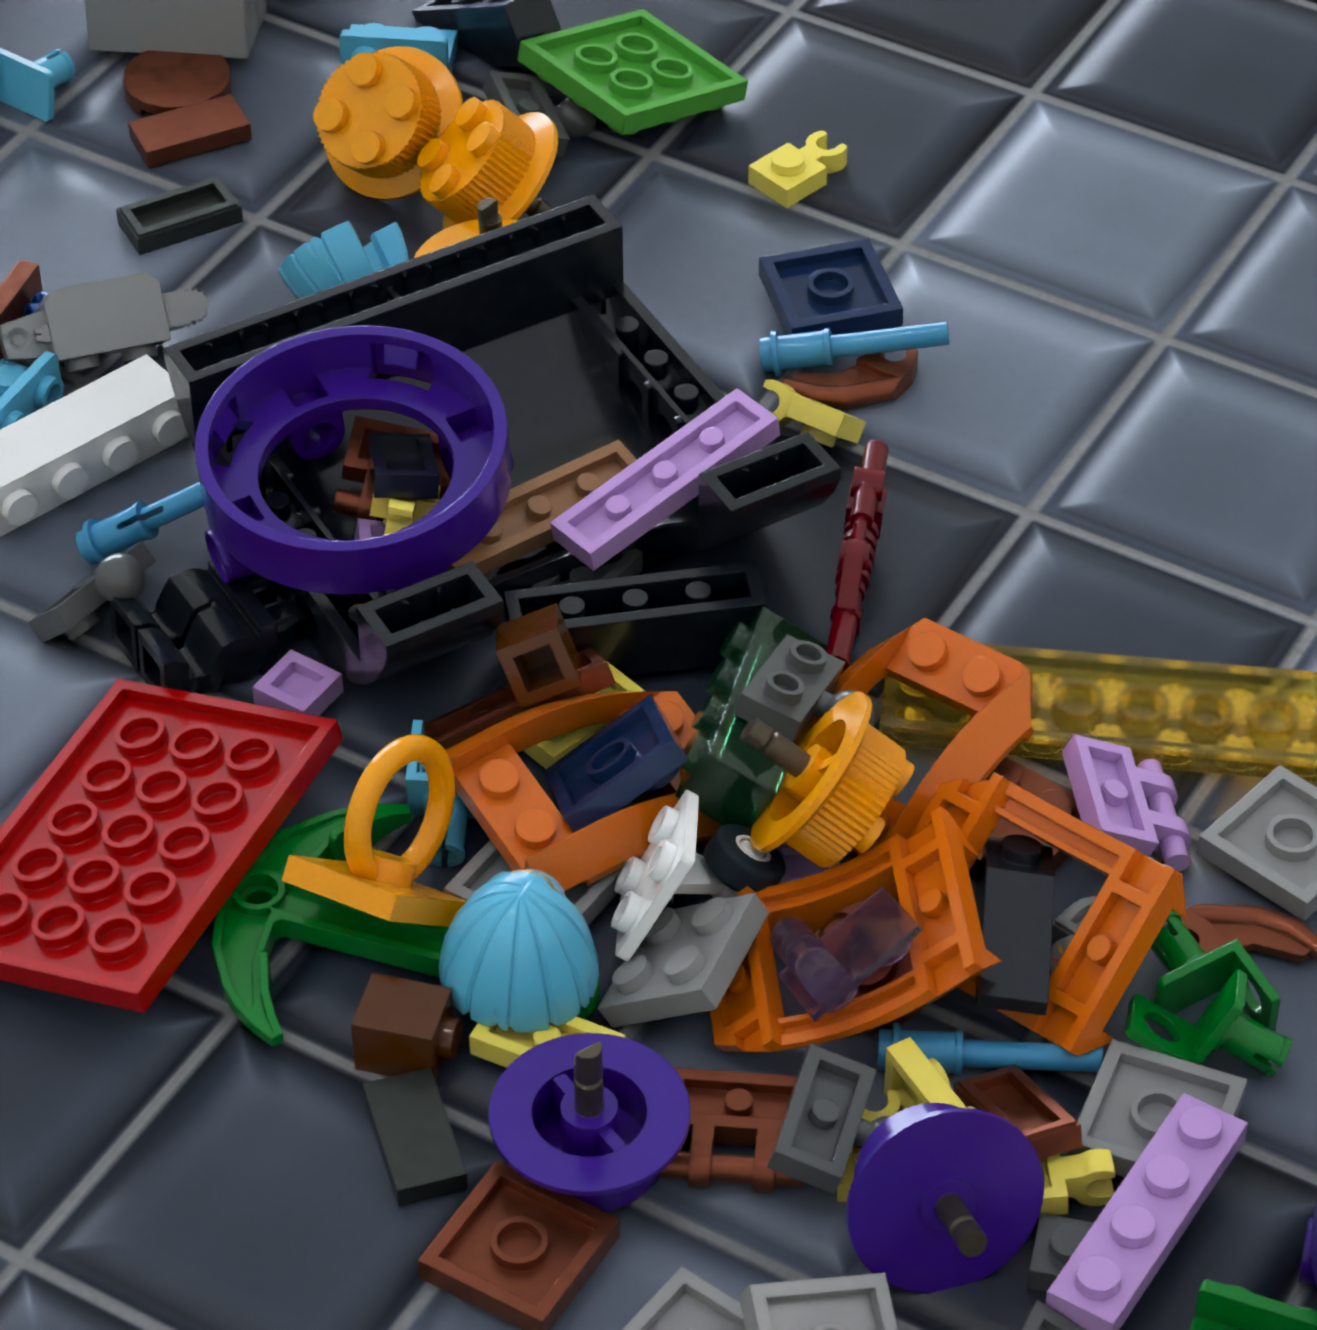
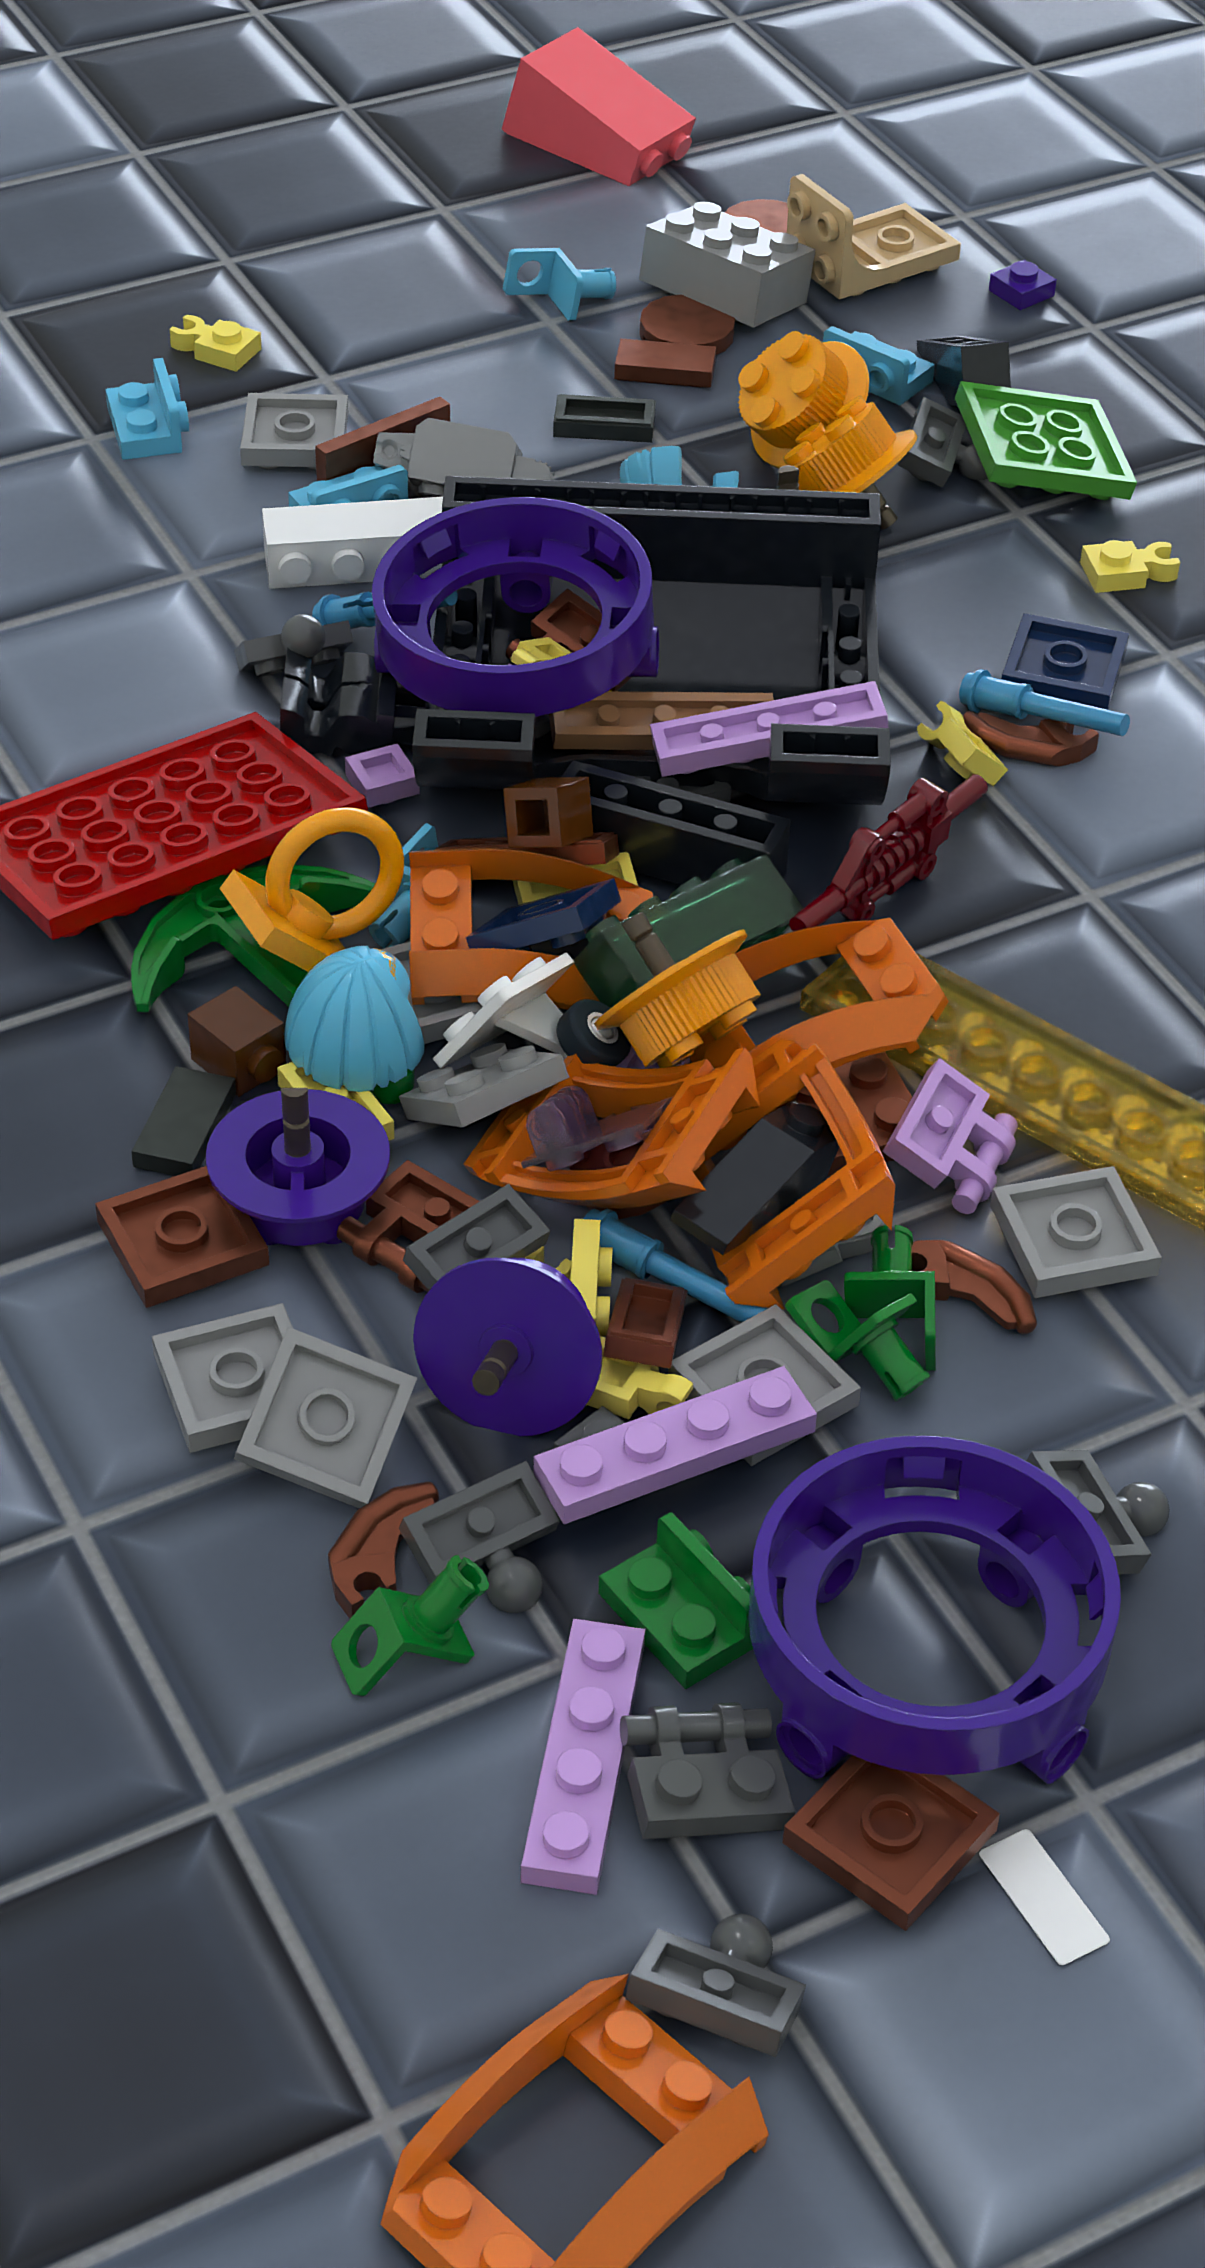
camera: 30 degrees right, 0 degrees up
(402, 466) = (556, 631): black tile -> none
(793, 688) = (715, 912): dark grey plate -> none

